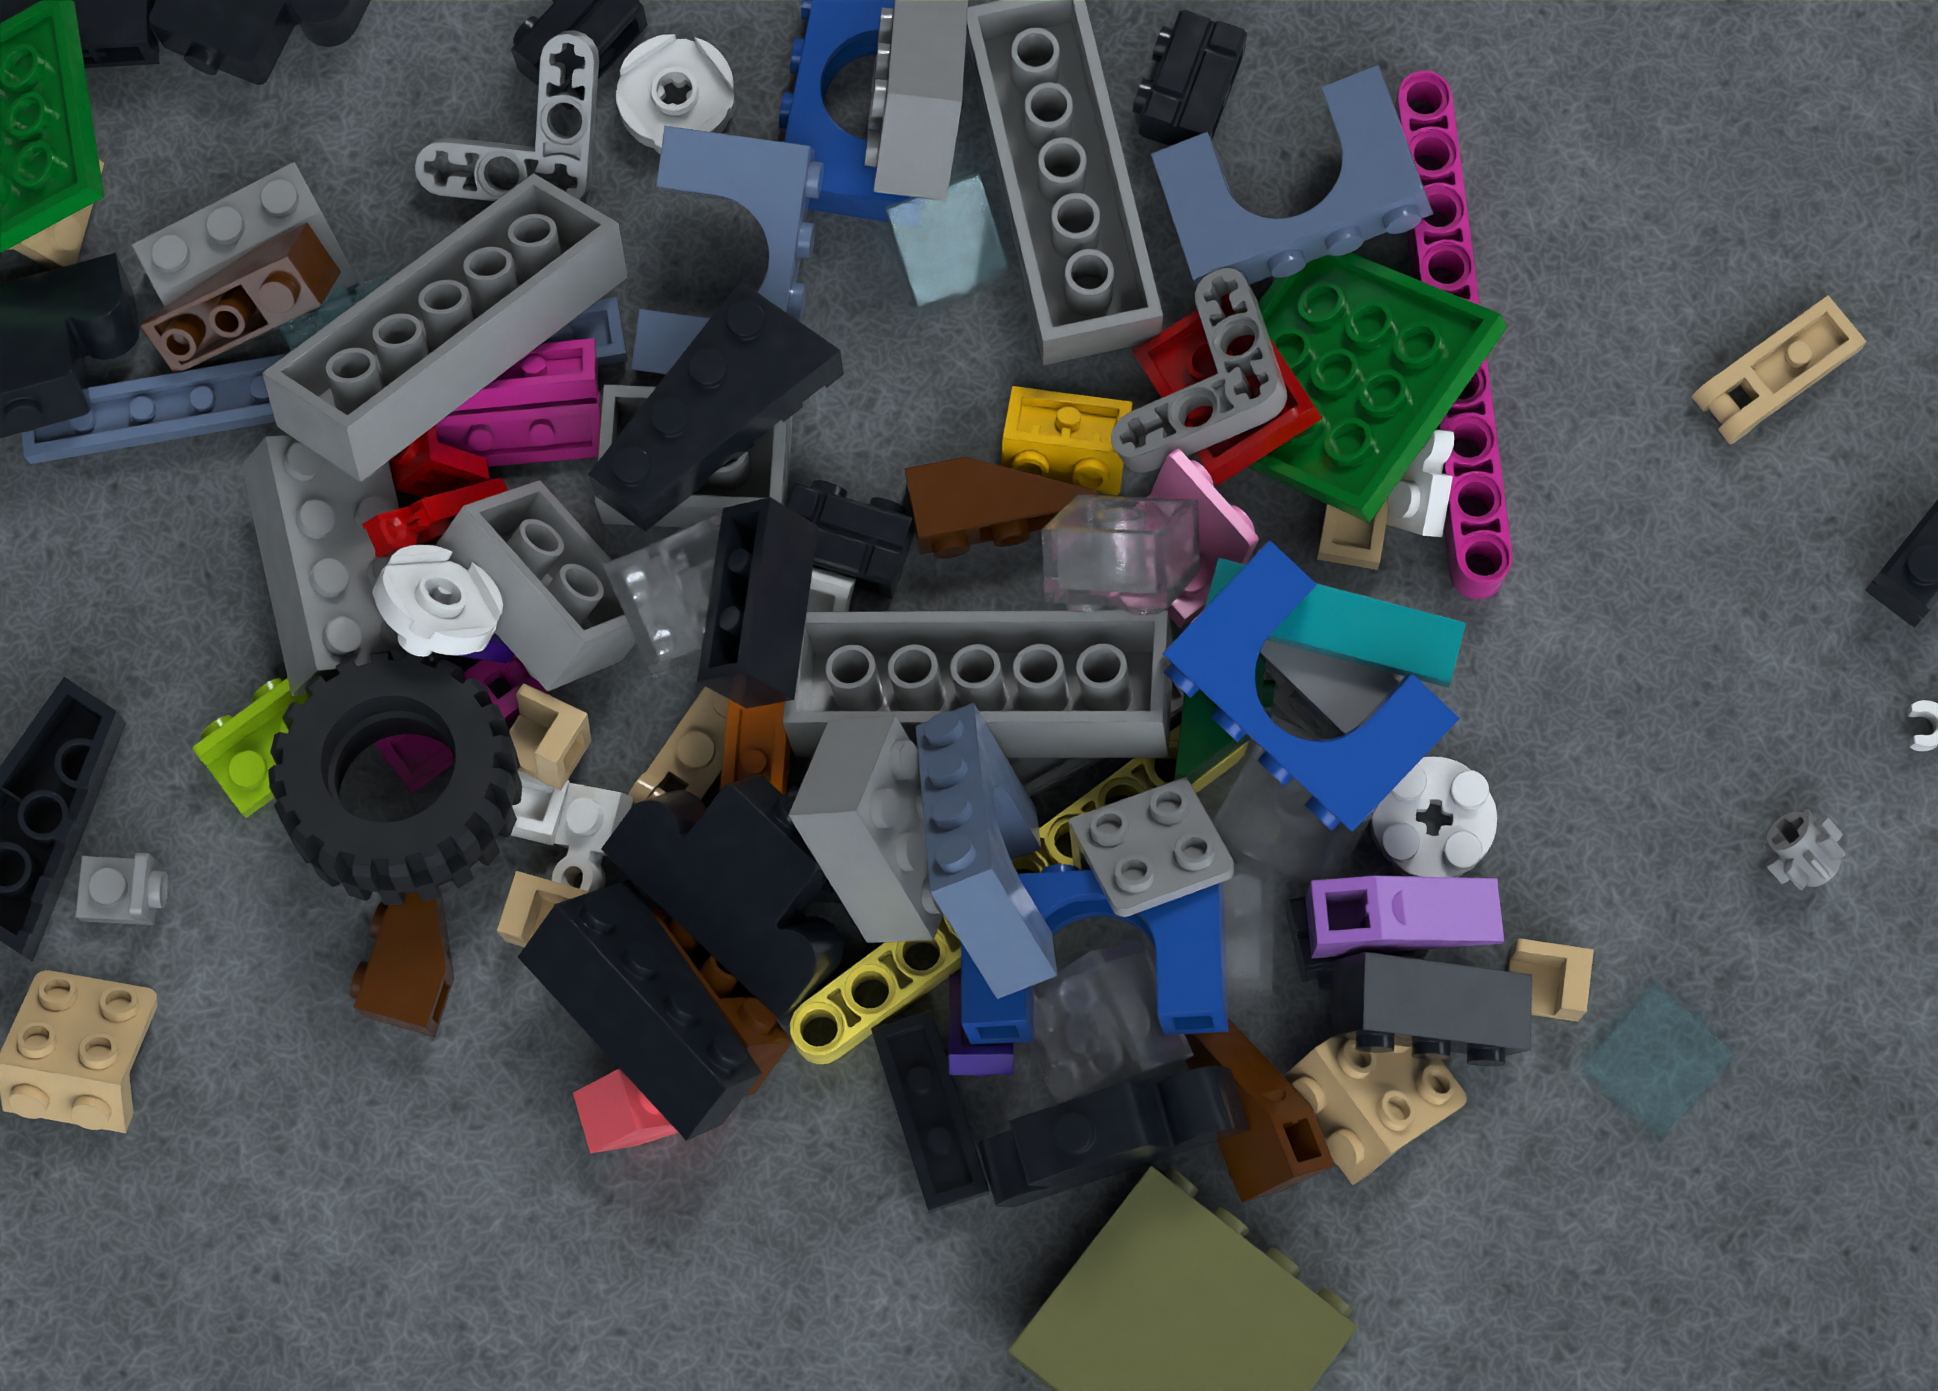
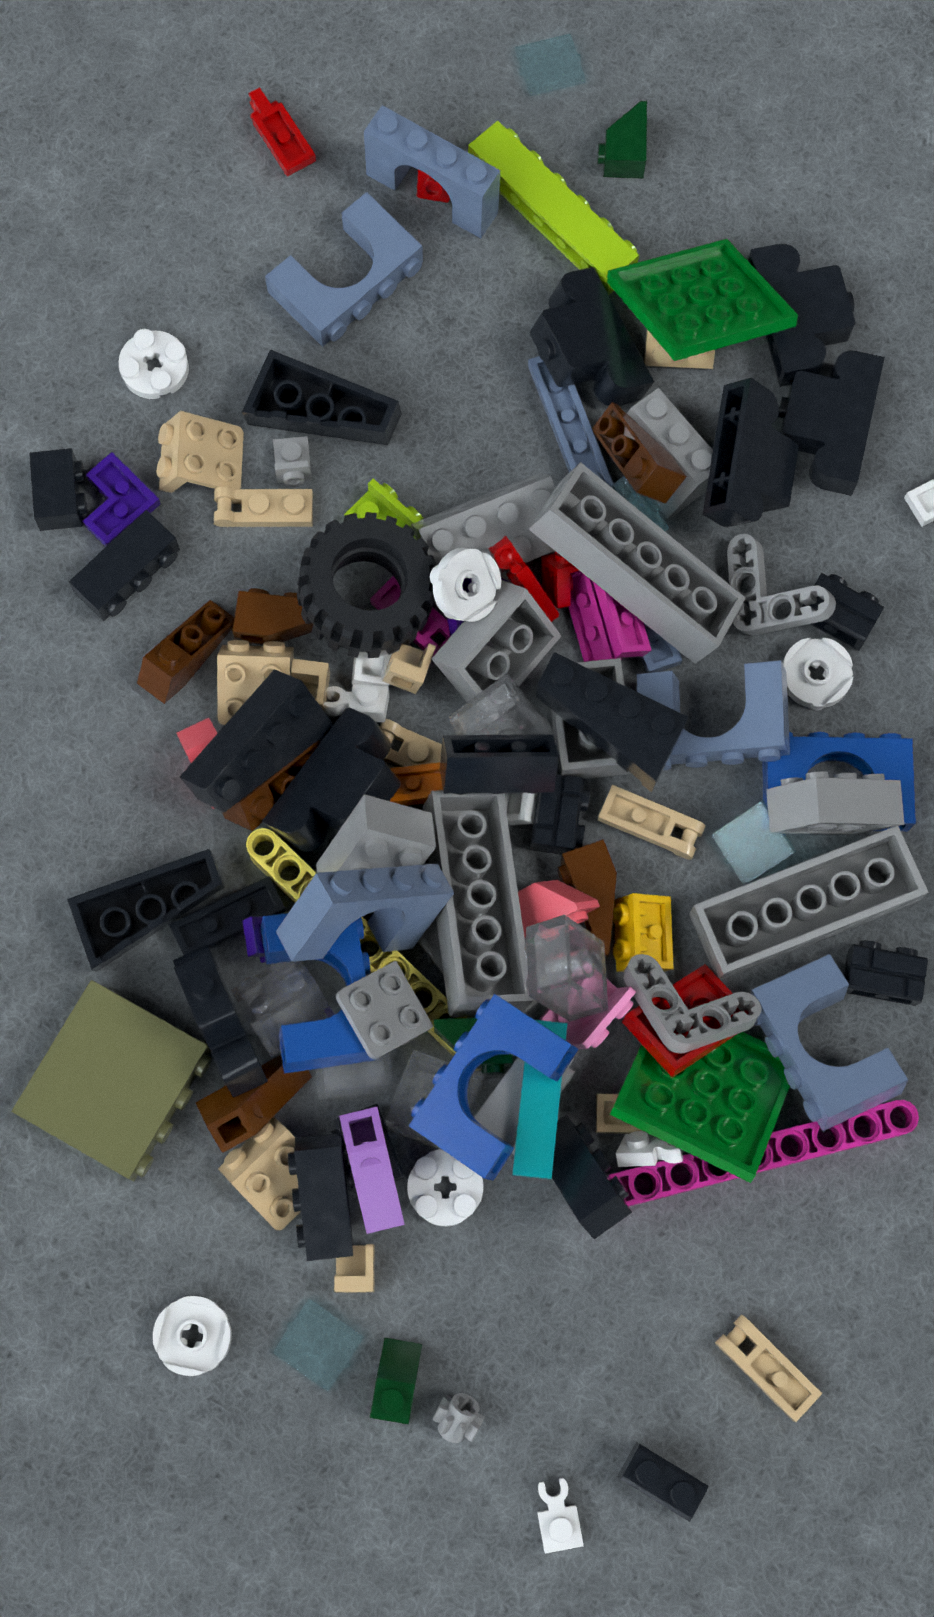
camera: 75 degrees right, 0 degrees up
(90, 1313) = (56, 489): none -> black brick
(136, 1189) = (125, 497): none -> dark purple plate
(198, 951) = (264, 507): none -> tan plate
(263, 1206) = (125, 566): none -> black brick
(290, 120) = (750, 459): none -> black brick
(440, 1121) = (184, 651): none -> reddish brown slope
(508, 1016) = (244, 669): none -> tan bracket
(880, 397) = (650, 821): none -> tan plate
(888, 1248) = (136, 907): none -> black wedge
(1001, 562) = (553, 899): none -> coral slope
(1476, 579) = (584, 1179): none -> black brick
(1654, 1244) = (173, 1348): none -> white plate
(1736, 940) = (396, 1381): none -> dark green slope

